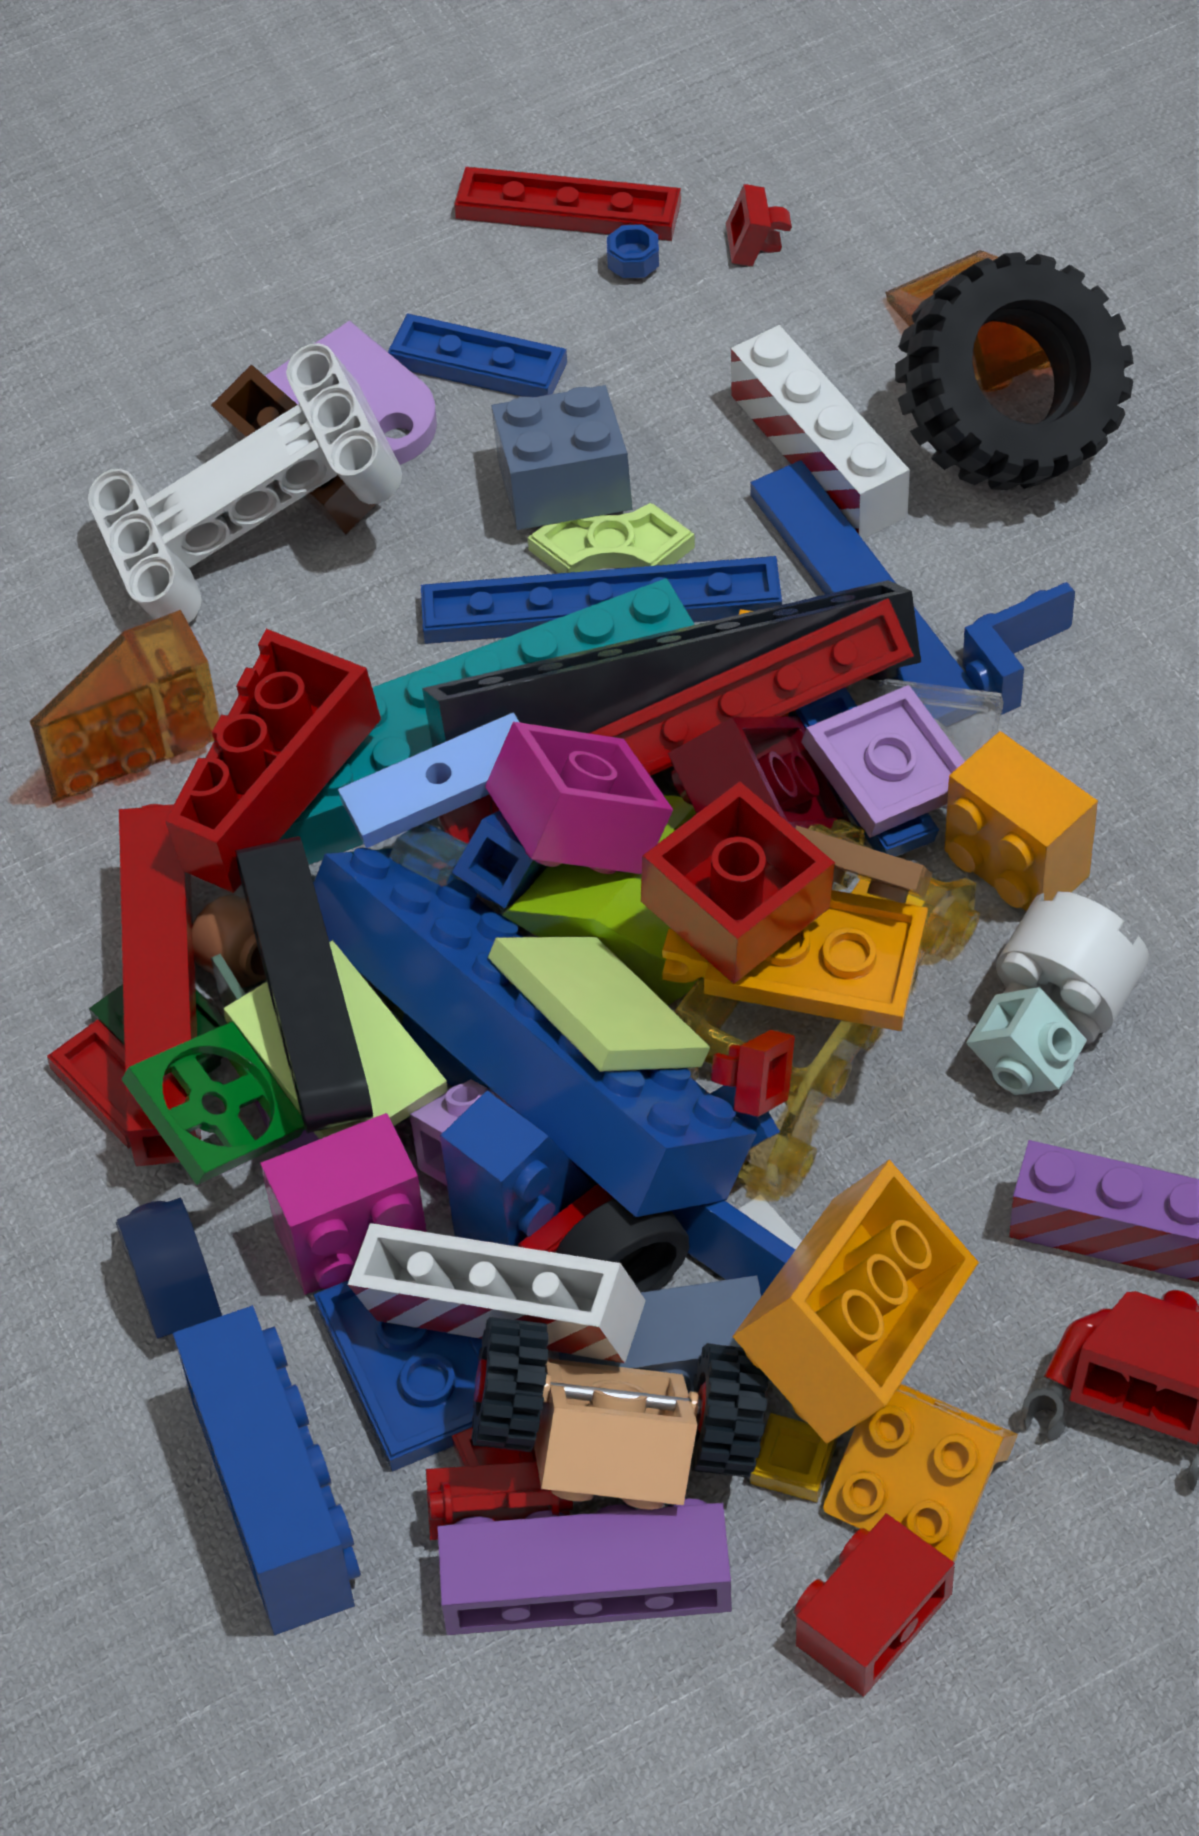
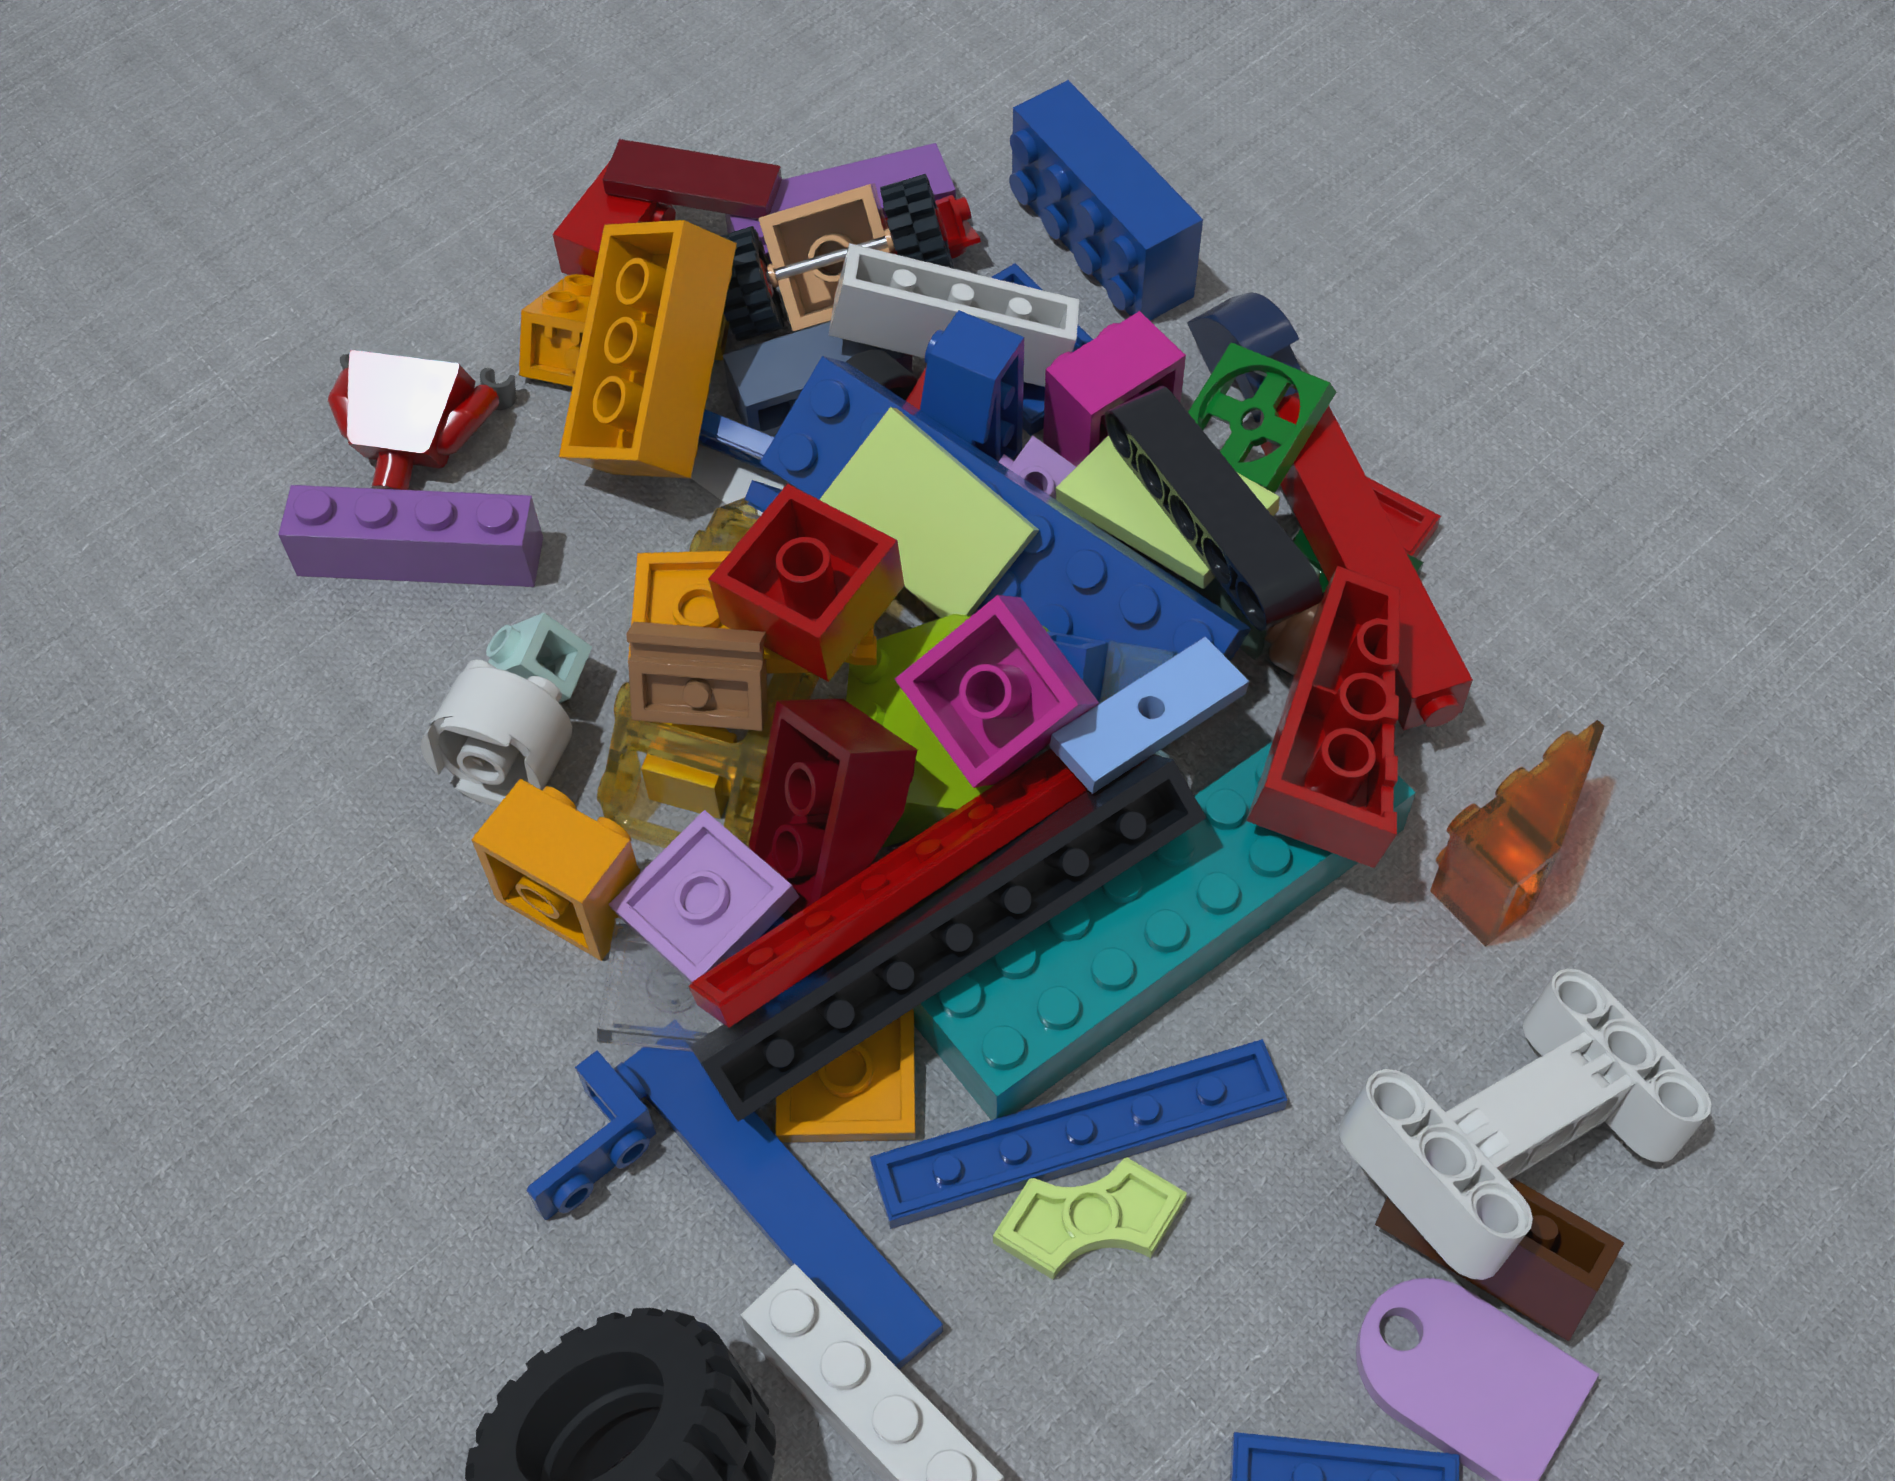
camera: 165 degrees right, 5 degrees up
(562, 457) = (1176, 1285): sand blue brick -> none
(758, 1071) = (762, 485): red tile -> none
(765, 1589) = (692, 179): none -> dark red tile

